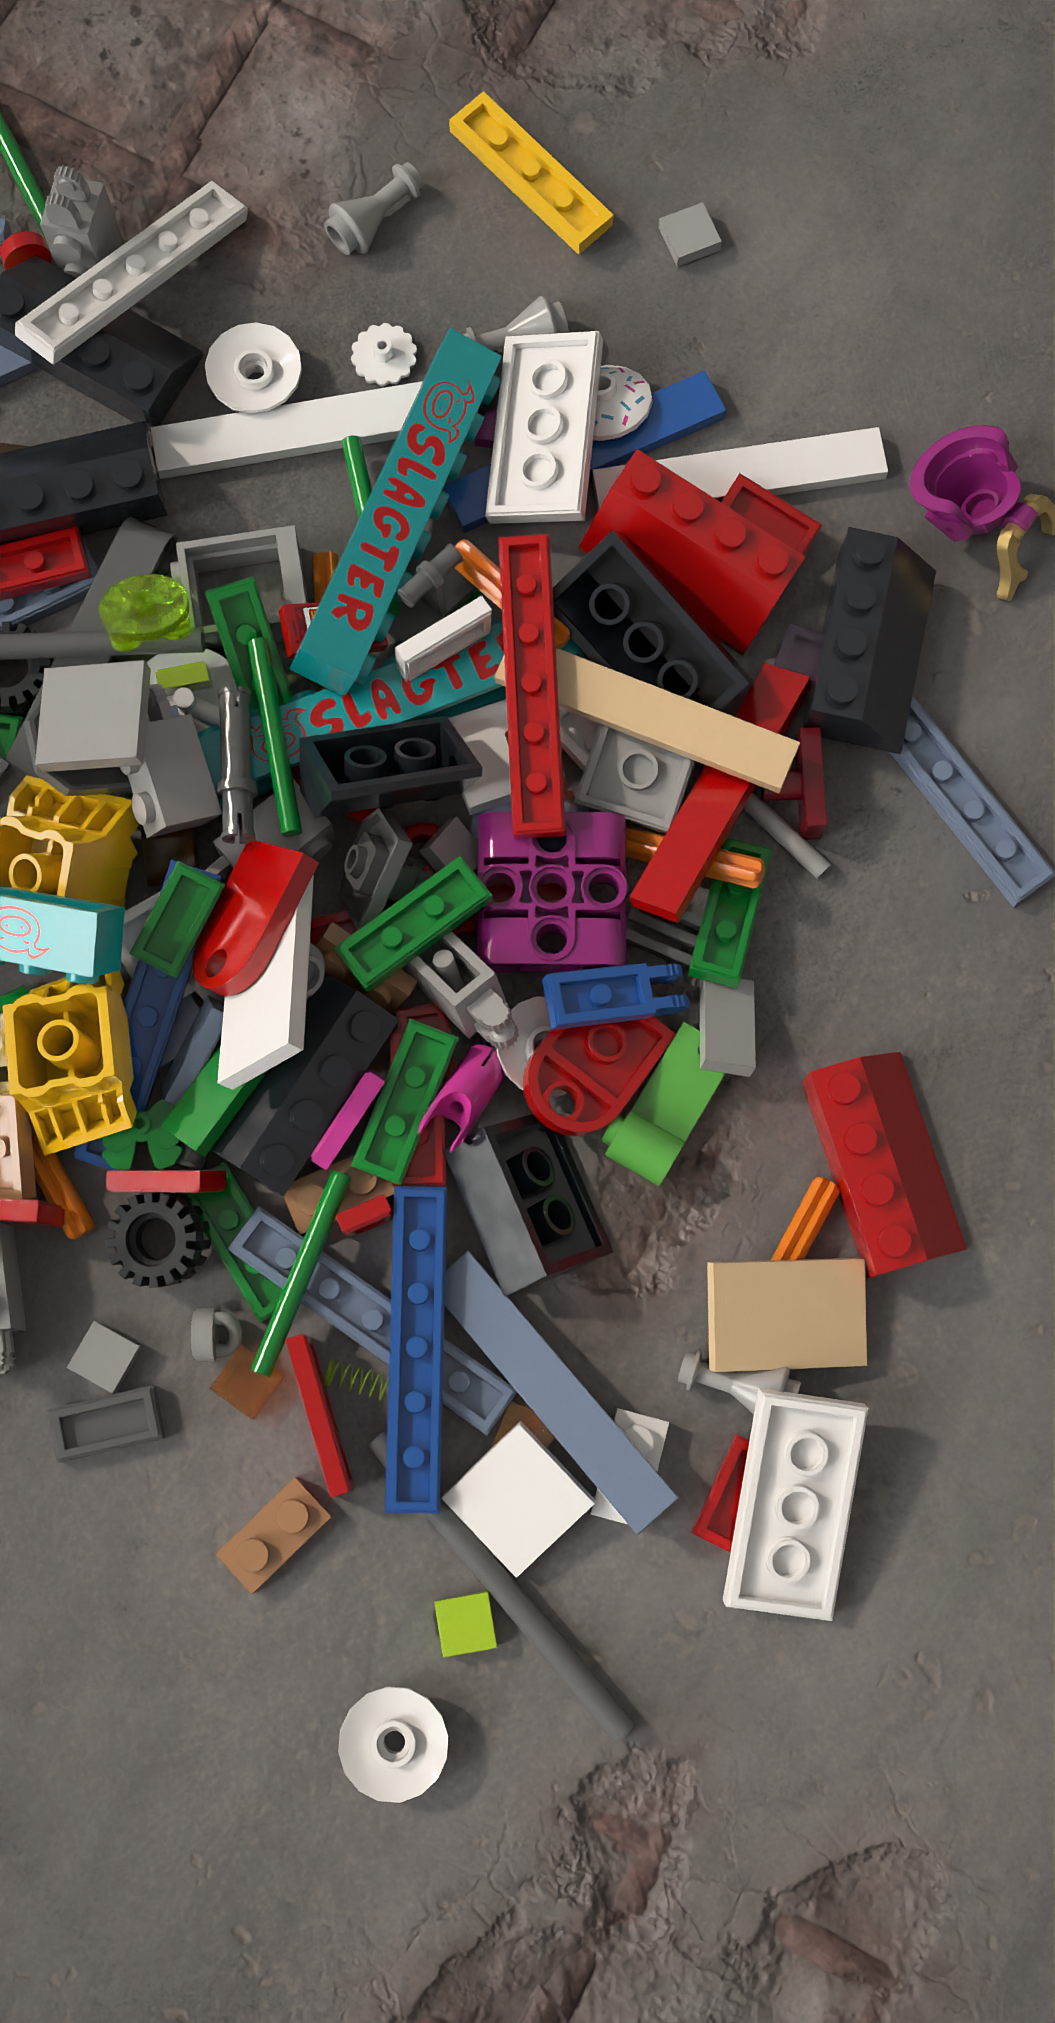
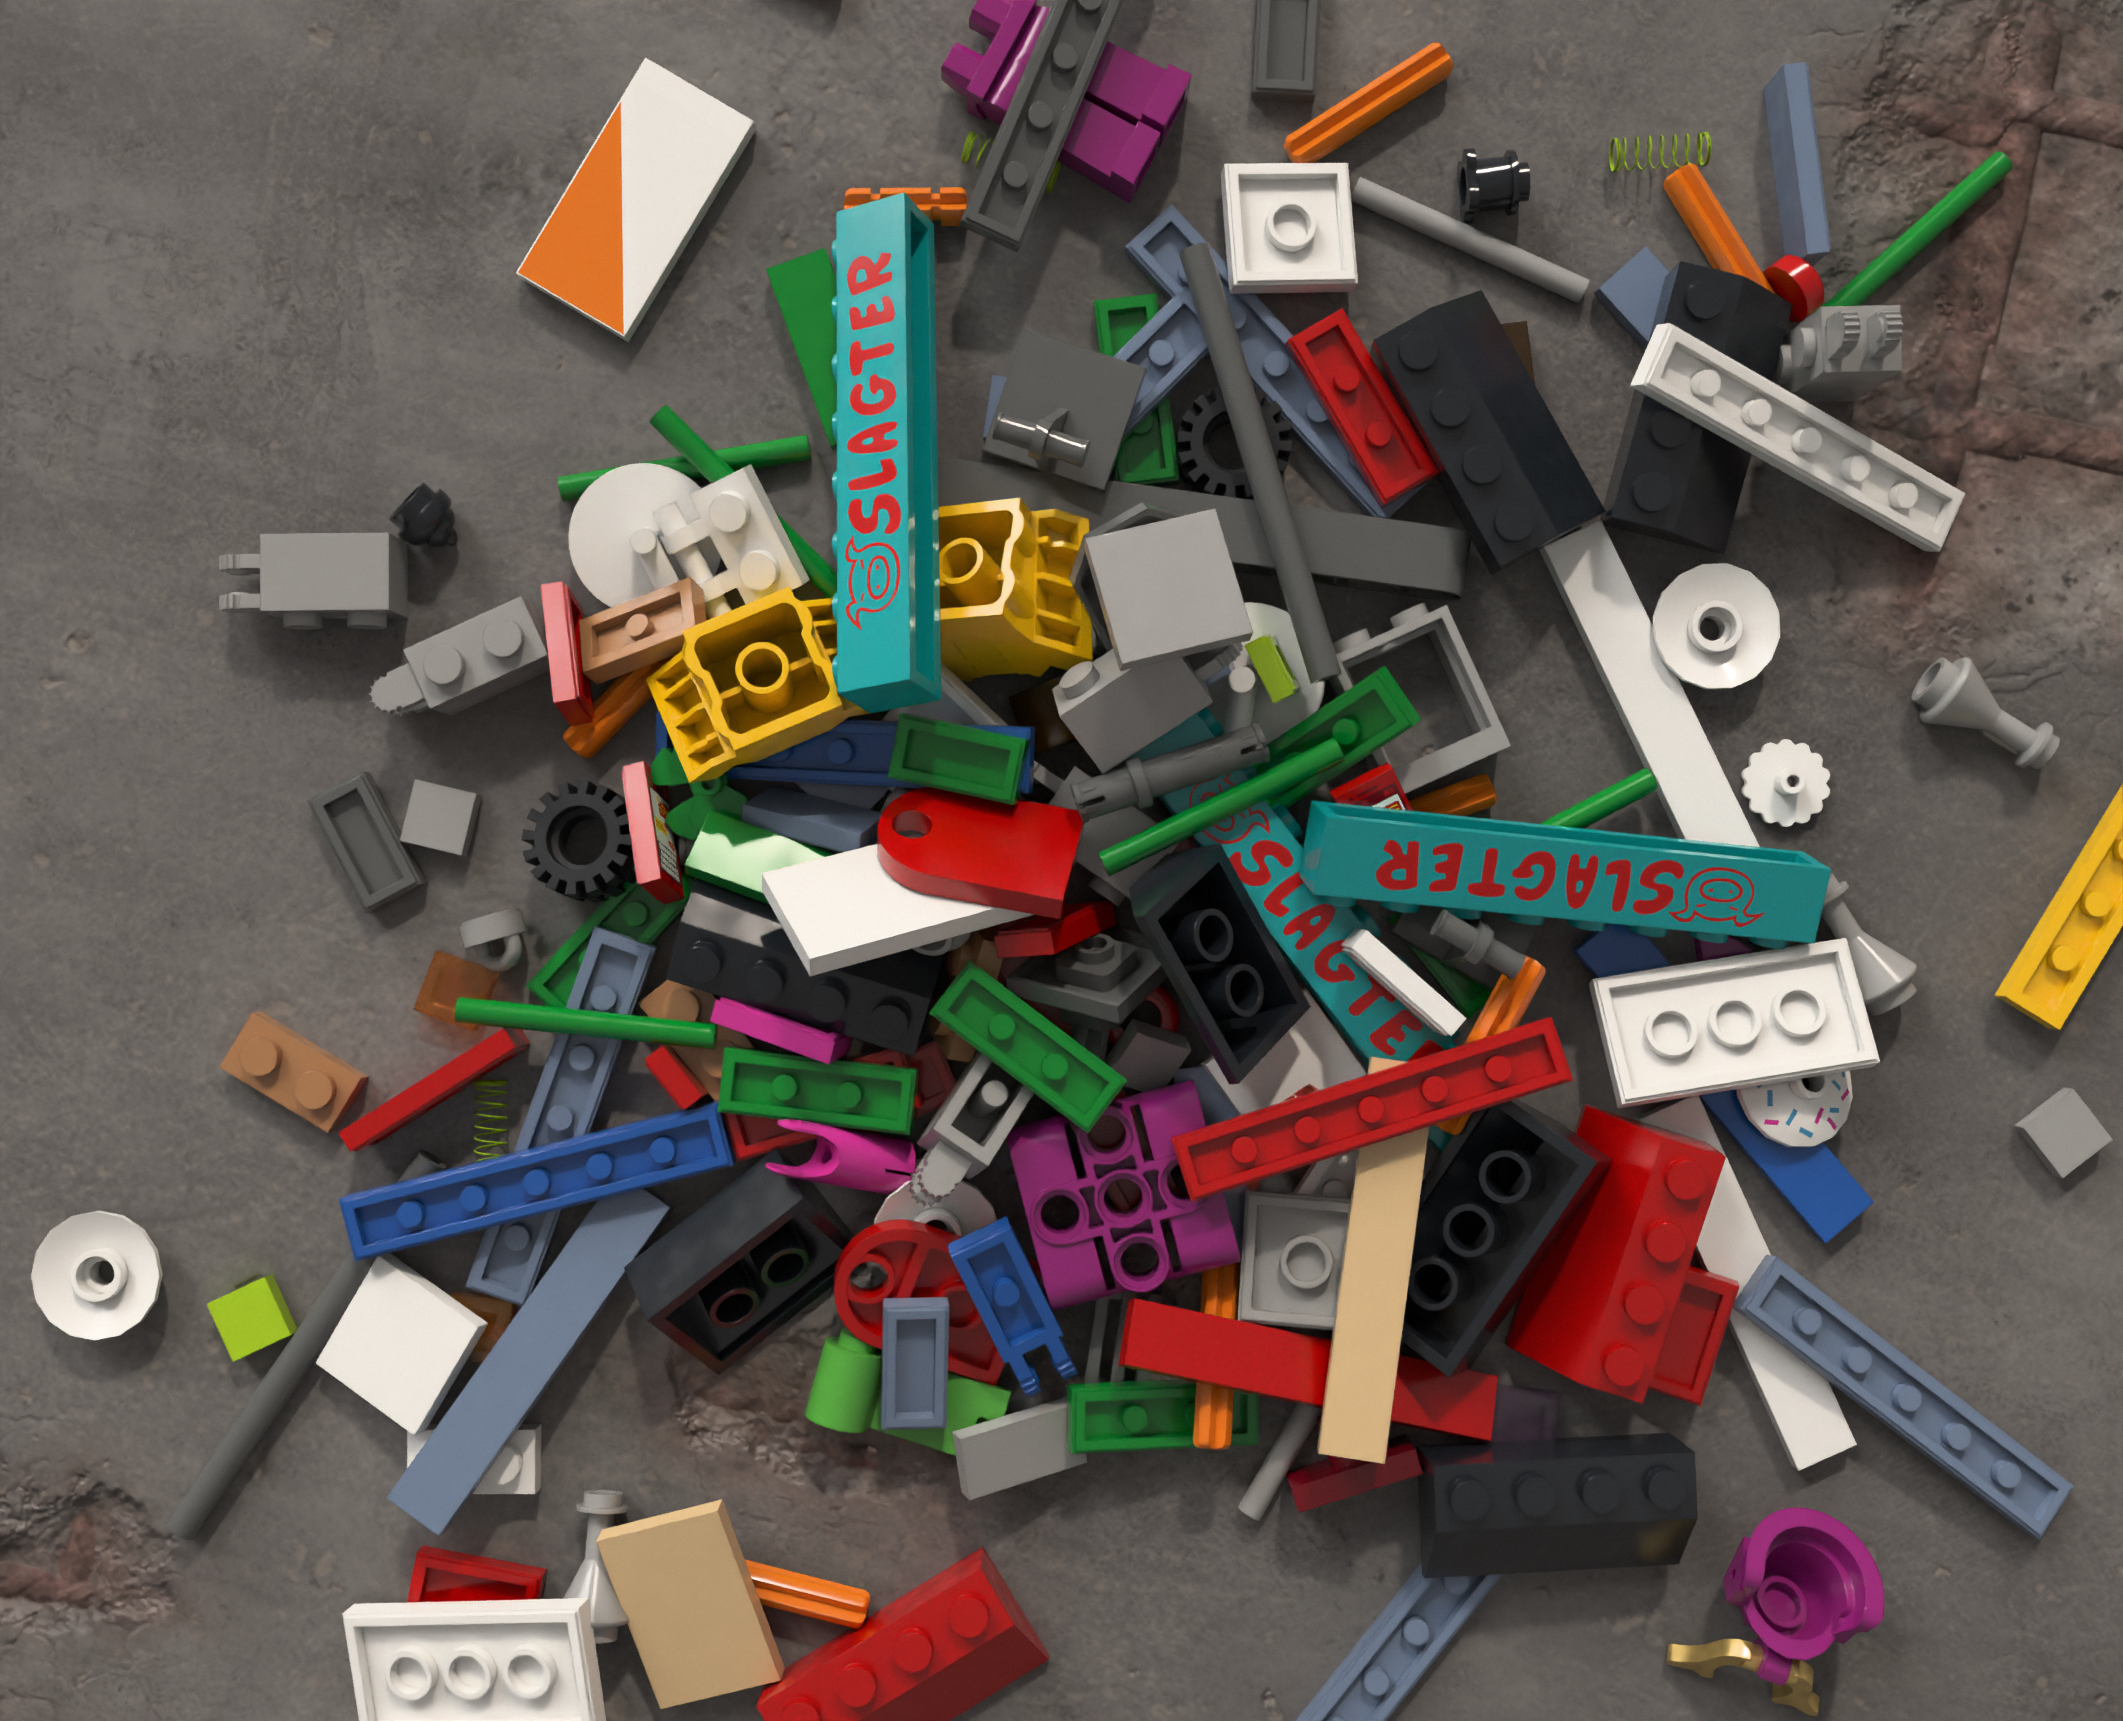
camera: 75 degrees right, 10 degrees up
(145, 610) = (1340, 597): clear neon green piece -> none
(332, 887) = (1049, 935): none -> red tile
(639, 1085) = (914, 1363): none -> sand blue tile
(849, 387) = (1902, 1396): none -> sand blue tile

